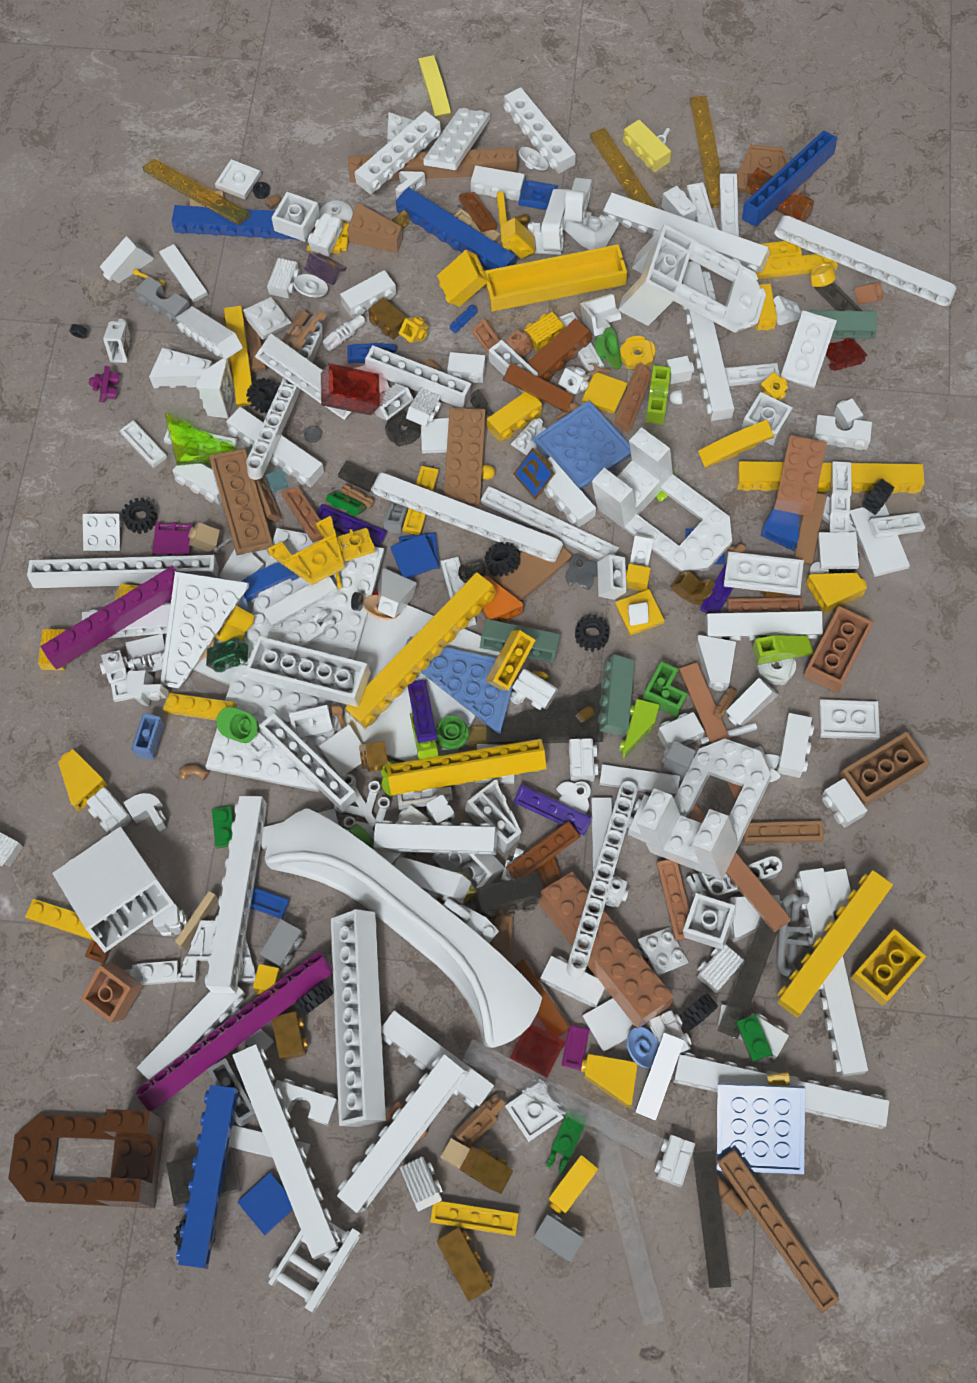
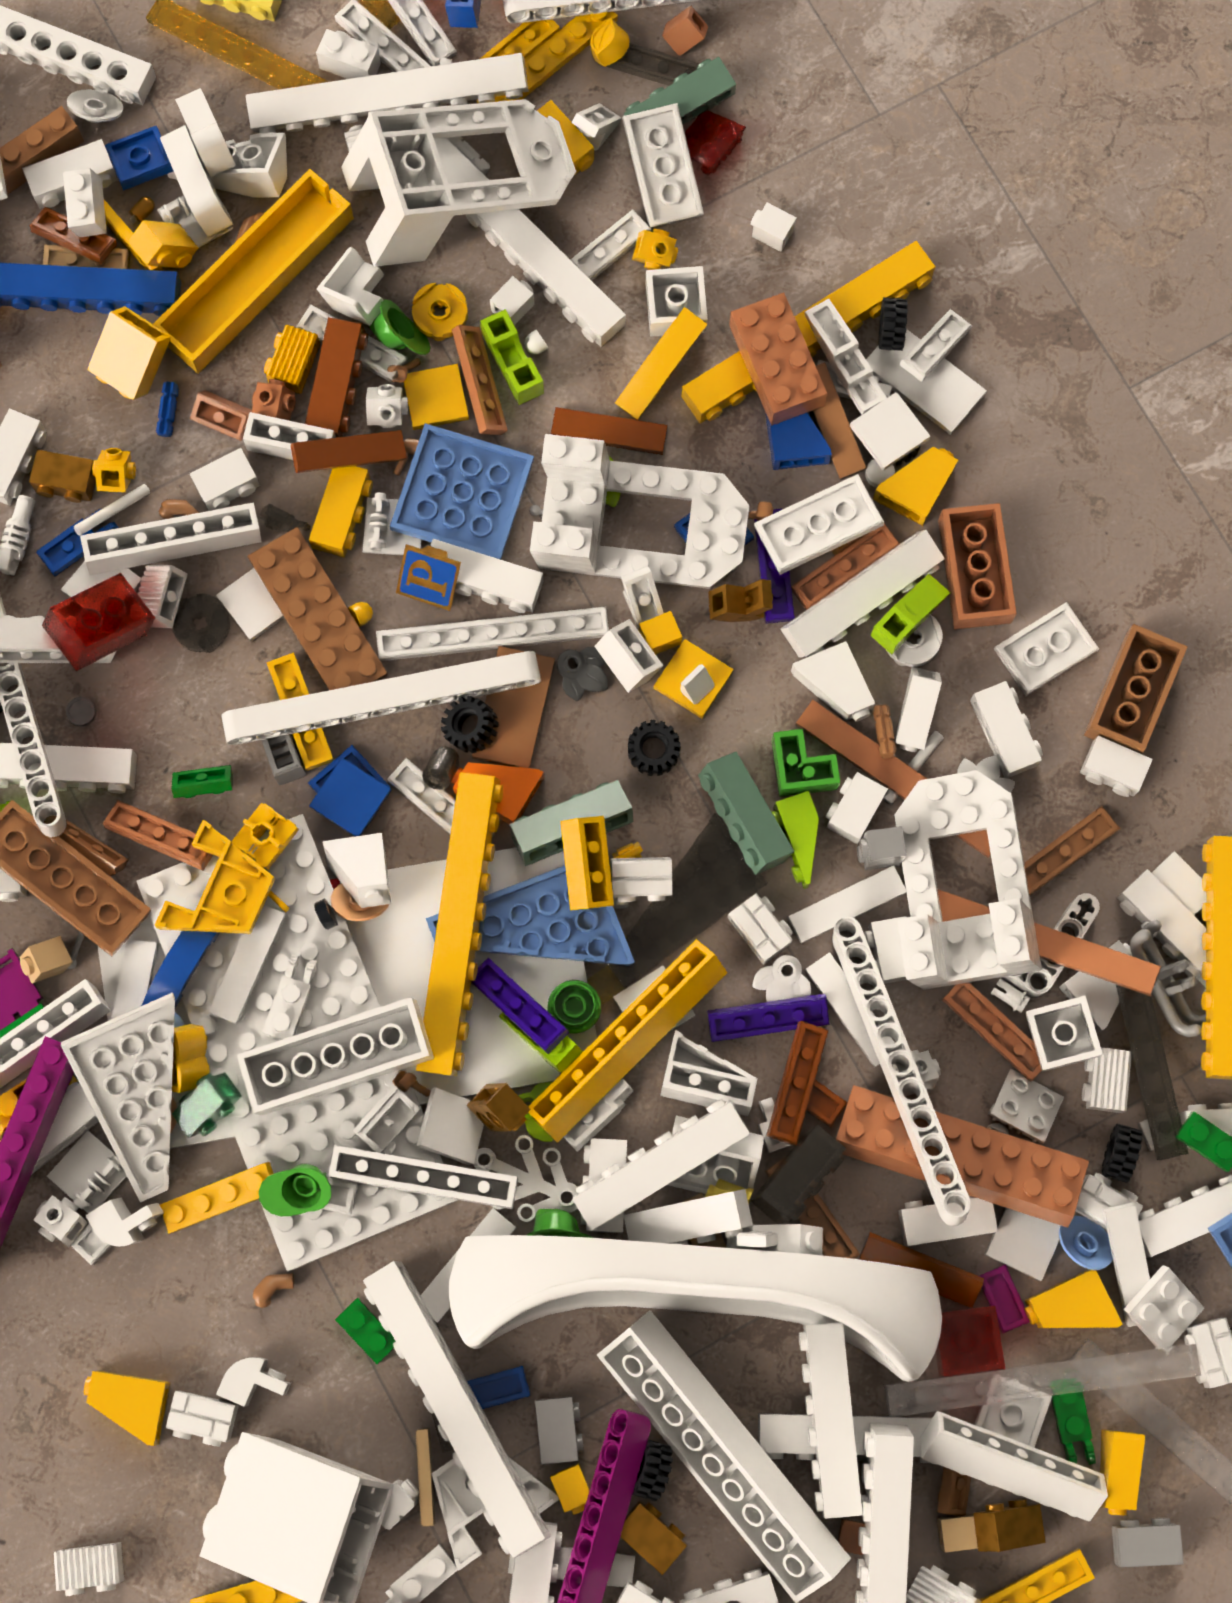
camera: 40 degrees left, 10 degrees up
(148, 736) = (179, 1284): medium blue brick -> none
(276, 480) = (82, 811): clear light blue tile -> none
(343, 523) = (228, 809): dark purple tile -> none
(356, 494) = (208, 760): medium nougat axle -> none
(357, 476) = (189, 732): clear smoke plate -> none
(400, 347) = (111, 510): none -> white bar
(424, 407) = (211, 578): white brick -> none
(430, 1037) = (832, 1420): none -> white brick
(439, 810) = (636, 1123): white brick -> none
(492, 196) = (84, 202): none -> white brick
(512, 1136) = (1013, 1466): none -> white brick
(585, 713) = (723, 864): pearl gold piece -> none
(663, 1113) = (1163, 1308): none -> white plate
(689, 466) = (614, 431): none -> dark orange tile
(857, 437) = (763, 270): white arch -> none

